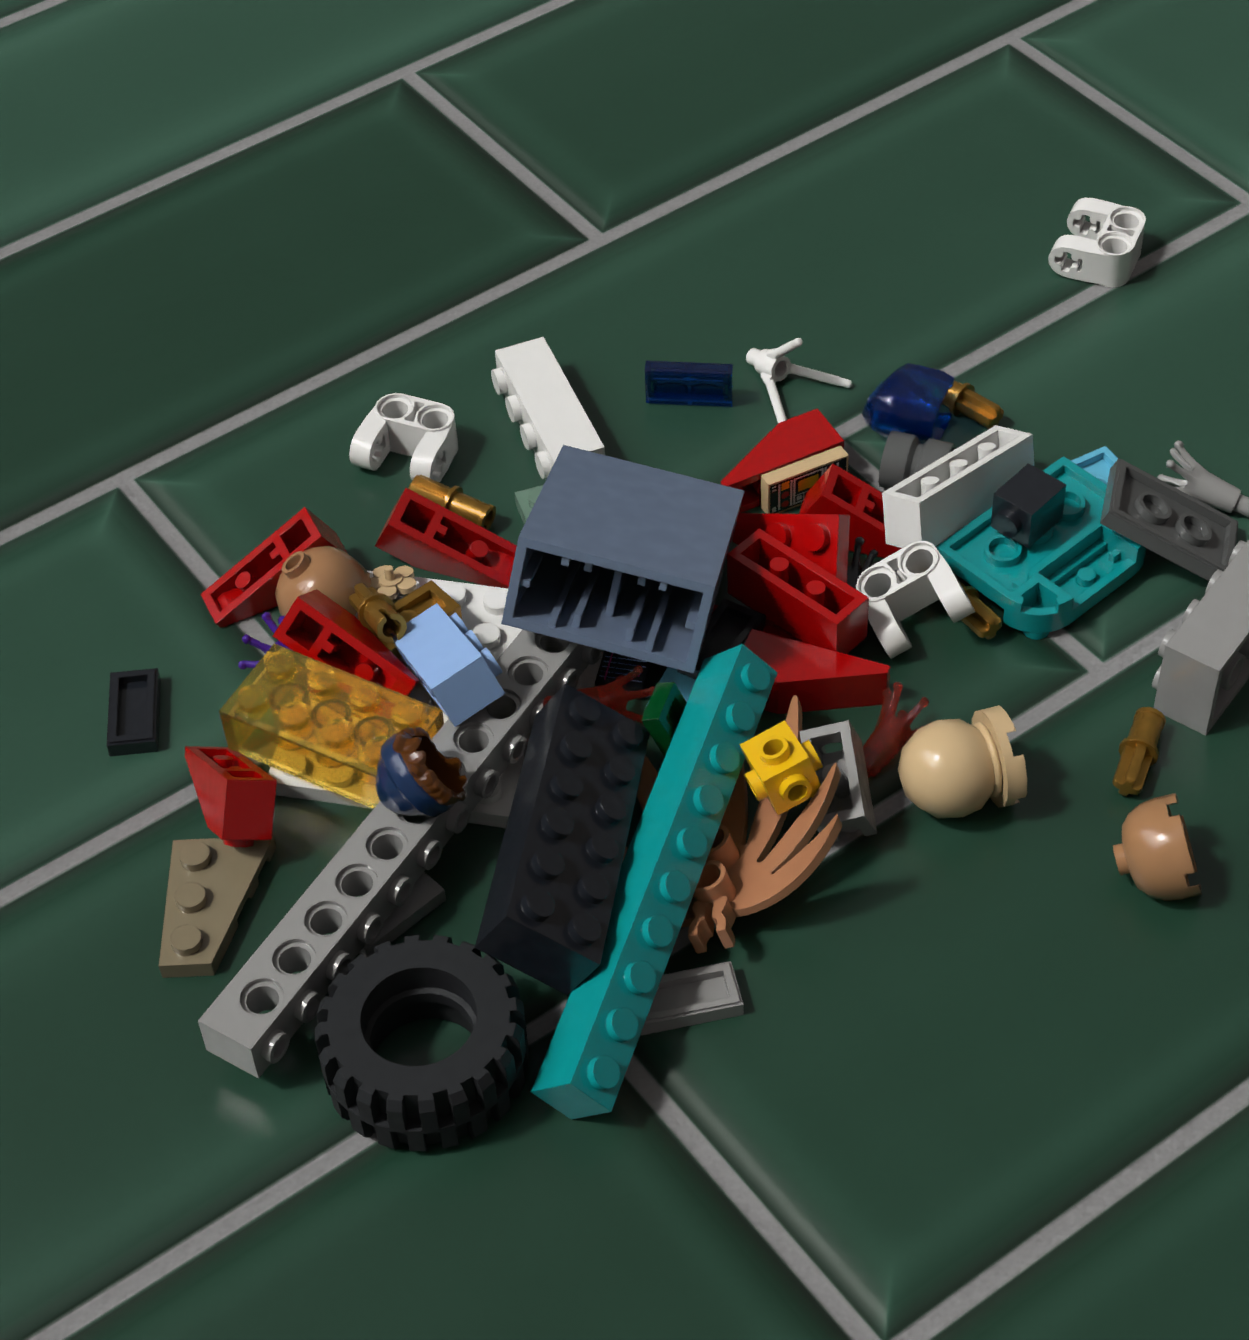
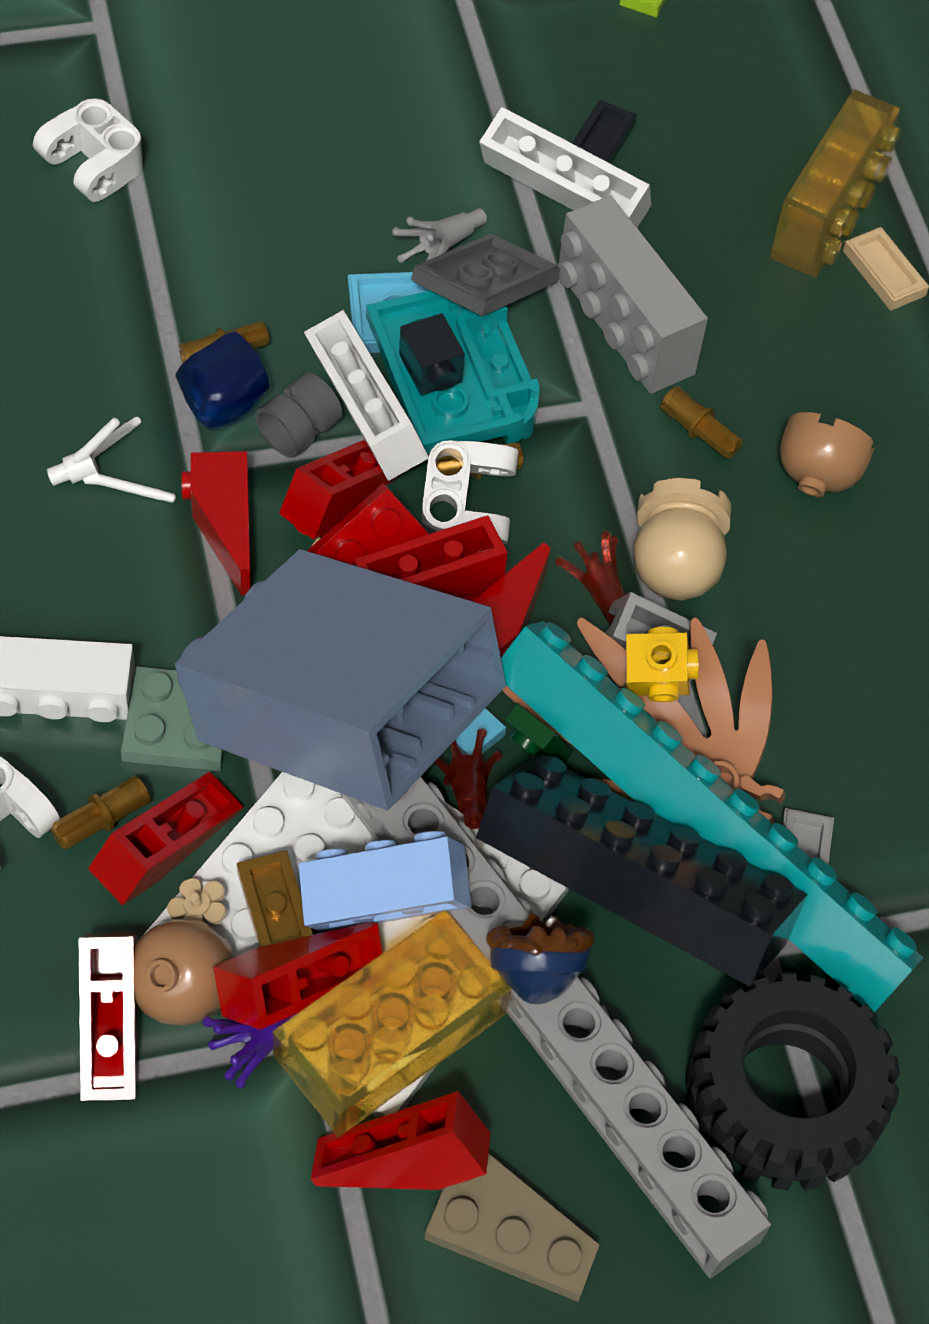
camera: 75 degrees left, 10 degrees up
(133, 712) = (217, 1221): black tile -> none
(377, 613) = (273, 923): pearl gold axle -> none
(689, 383) = (67, 542): clear blue tile -> none
(788, 485) = (259, 508): tile -> none

